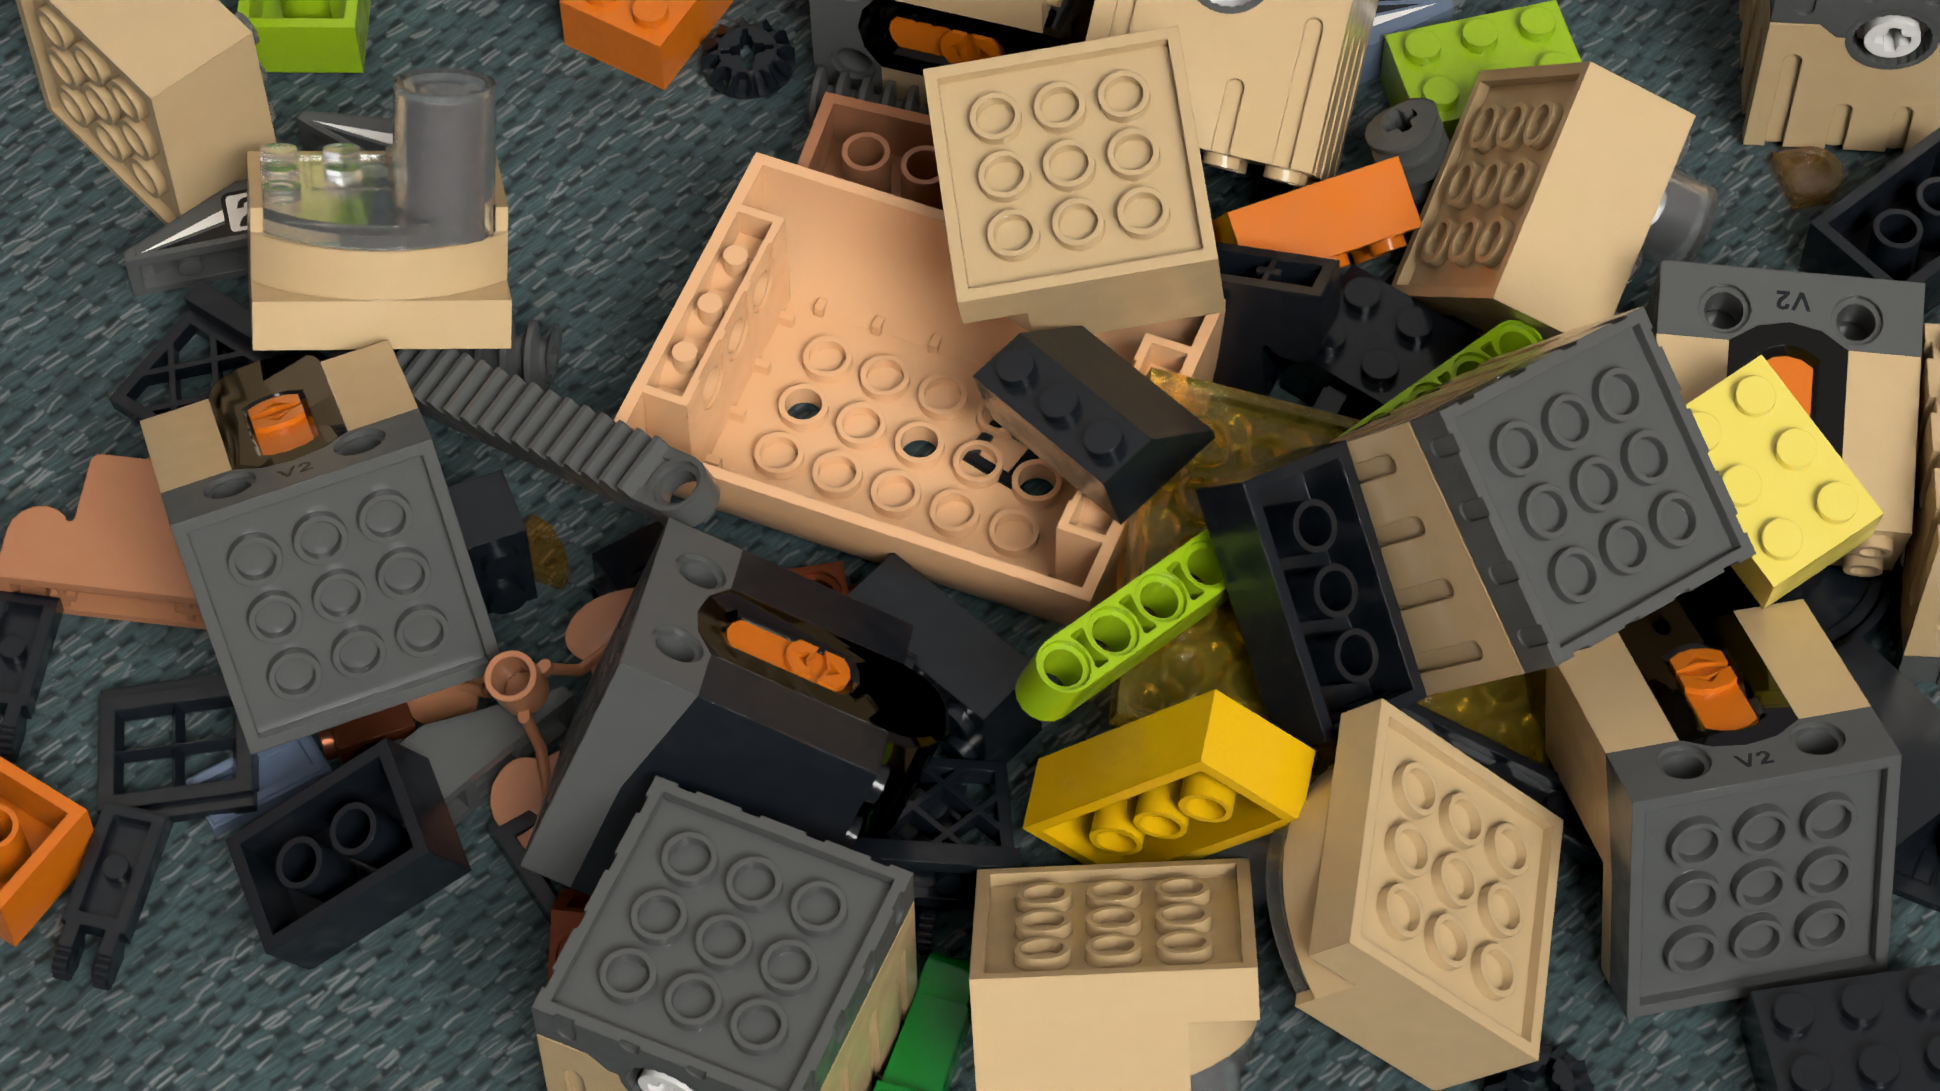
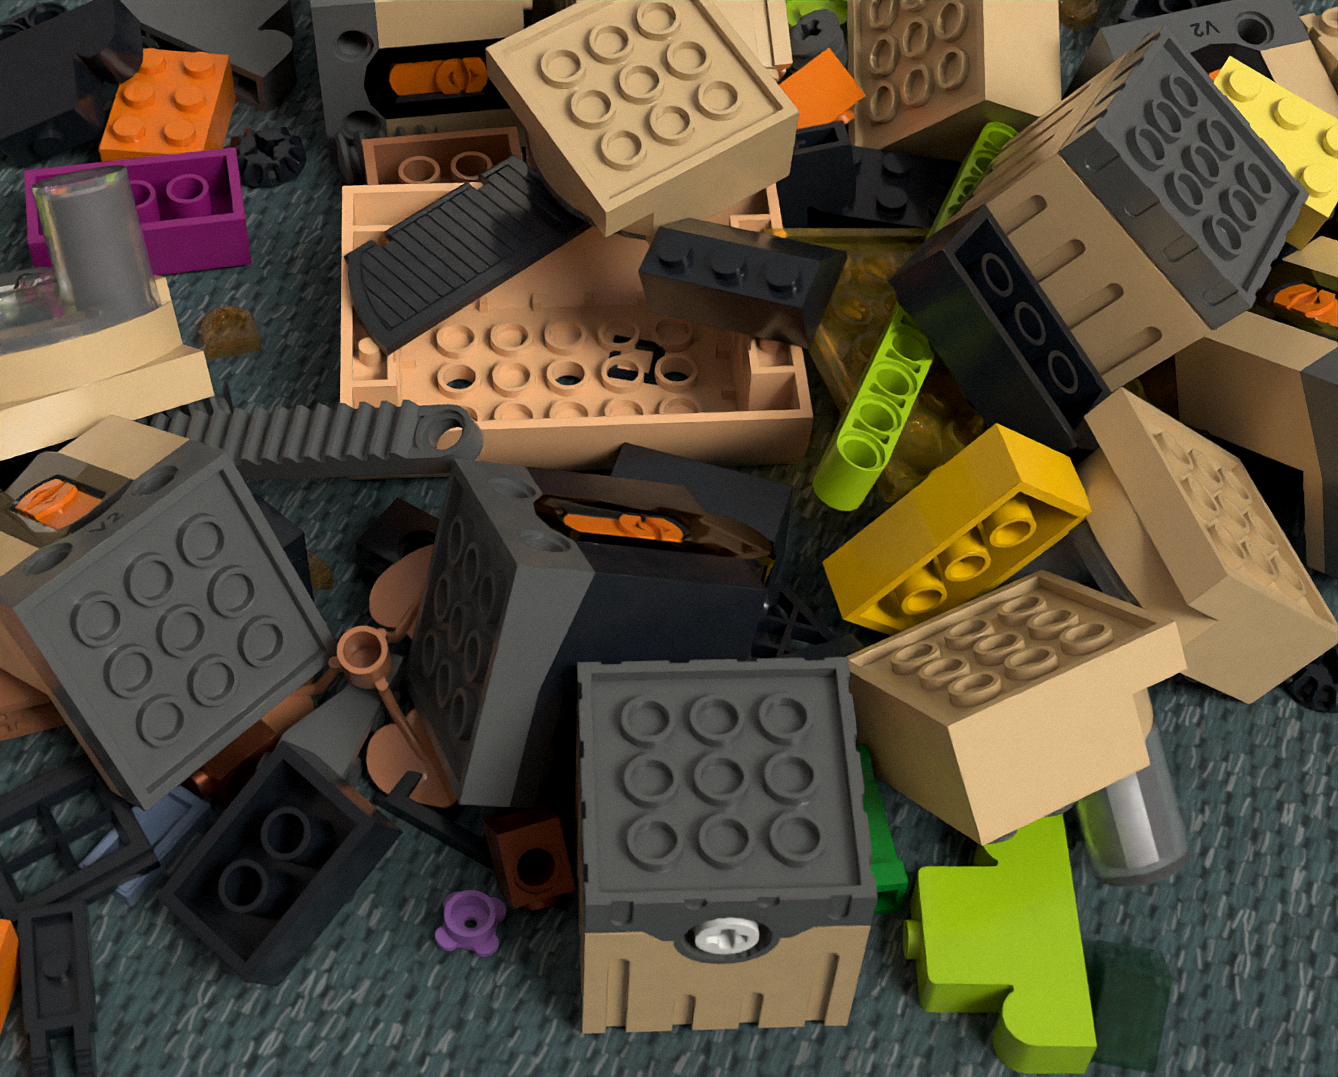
camera: 30 degrees left, 5 degrees down
(503, 967) = (470, 906): none -> medium lavender plate
(582, 93) = (185, 206): none -> magenta brick
(603, 262) = (229, 332): none -> clear orange tile
(820, 276) = (455, 252): none -> black piece

